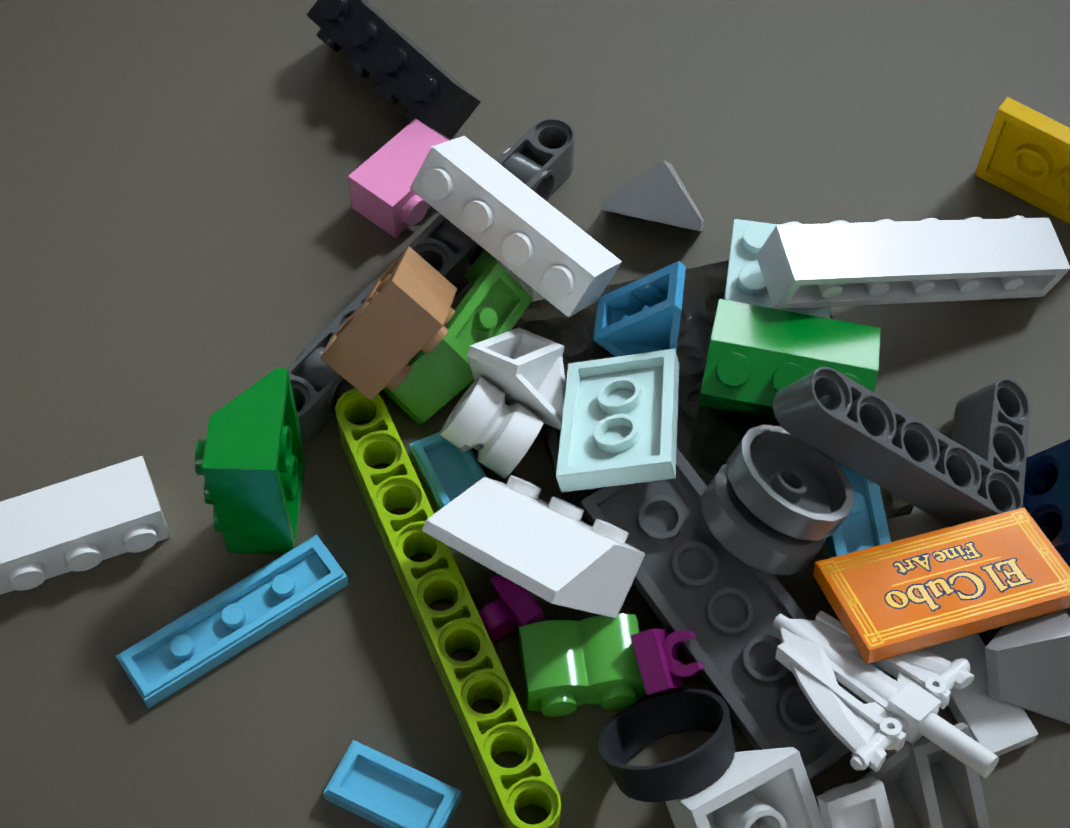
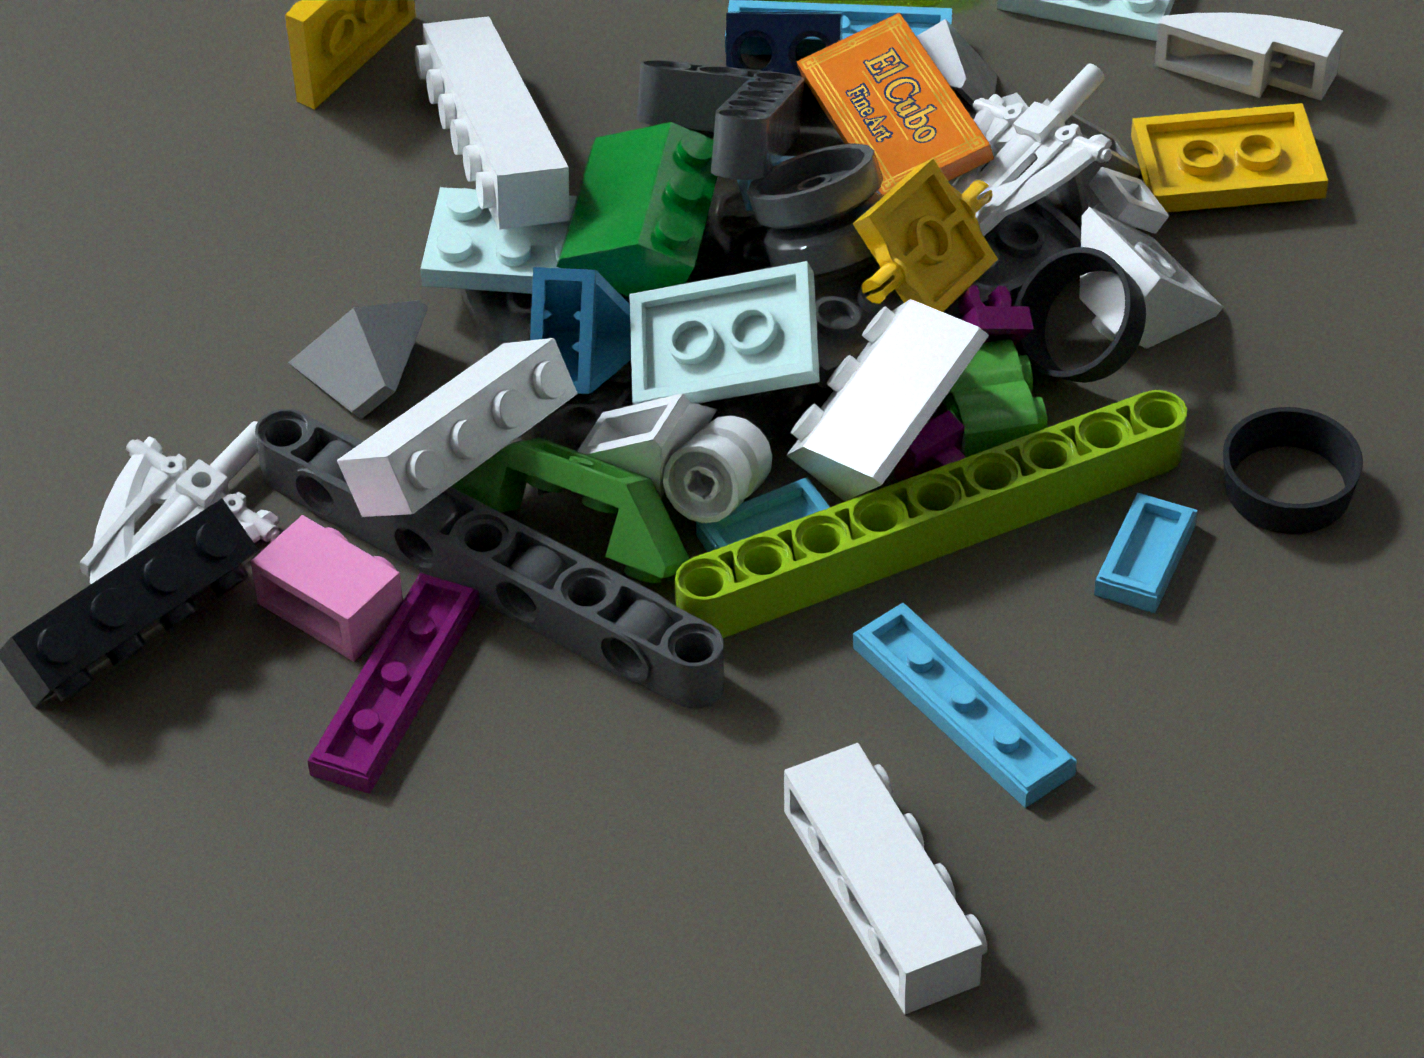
camera: 90 degrees left, 10 degrees down
(255, 467) = (809, 628): green slope -> none
(314, 225) = (393, 683): none -> magenta tile
(395, 322) = (626, 509): medium nougat brick -> none
(507, 104) = (184, 493): none -> white bar
(727, 582) = (926, 239): none -> yellow plate

